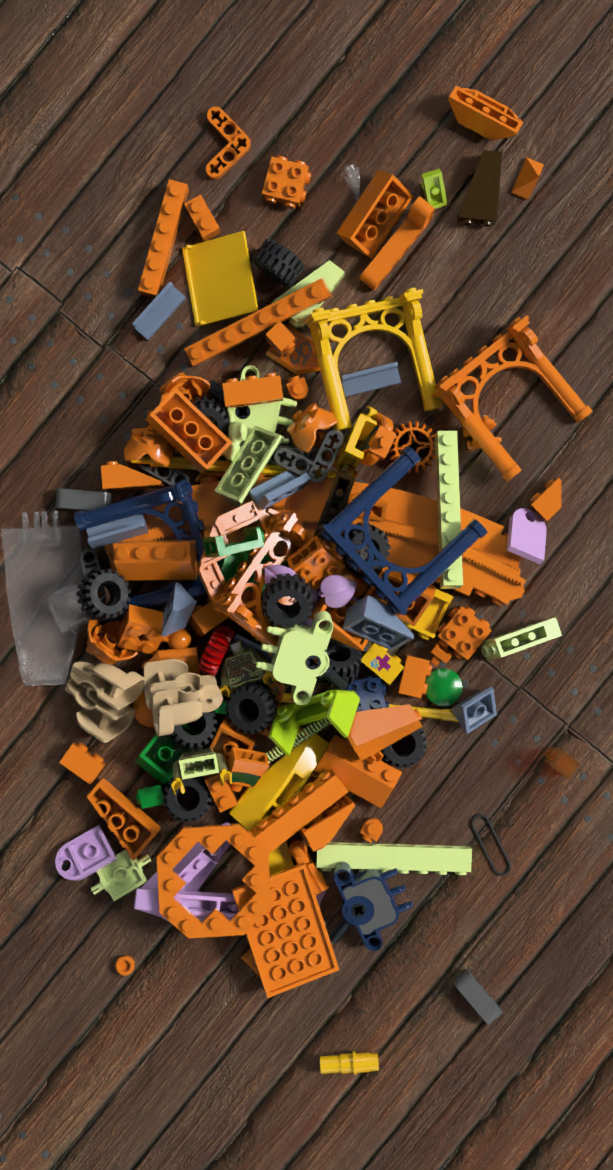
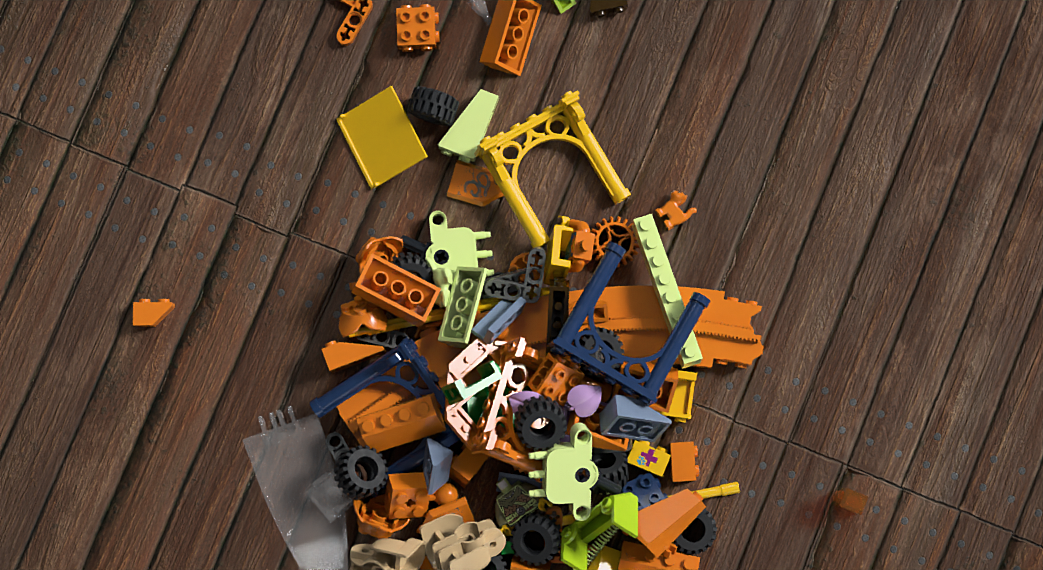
camera: 15 degrees left, 5 degrees down
(81, 499) = (310, 388): dark grey beam -> none
(116, 531) = (355, 407): sand blue panel -> none
(158, 311) = (331, 186): sand blue panel -> none
(163, 238) = (316, 116): orange brick -> none
(202, 218) = (347, 85): orange brick -> none
(216, 650) = (484, 493): red gear -> none
(252, 391) = (445, 234): orange brick -> none
(258, 322) = (431, 167): orange brick -> none
(281, 339) = (458, 177): orange brick -> none
(297, 388) = (486, 219): orange plate -> none
(307, 423) = (505, 251): orange brick -> none
(370, 379) = (554, 190): sand blue panel -> none
(417, 220) = (552, 27): orange beam -> none
(440, 653) = (702, 431): orange tile -> none
(443, 687) = (715, 463): green dish -> none
(463, 632) = (717, 404): orange brick -> none
(476, 709) = (752, 475): sand blue slope -> none
(520, 639) = (774, 394): yellowish green slope -> none
(525, 343) = (689, 110): orange arch -> none
(527, 537) = (749, 295): lavender tile -> none
(548, 501) = (759, 255): orange slope -> none

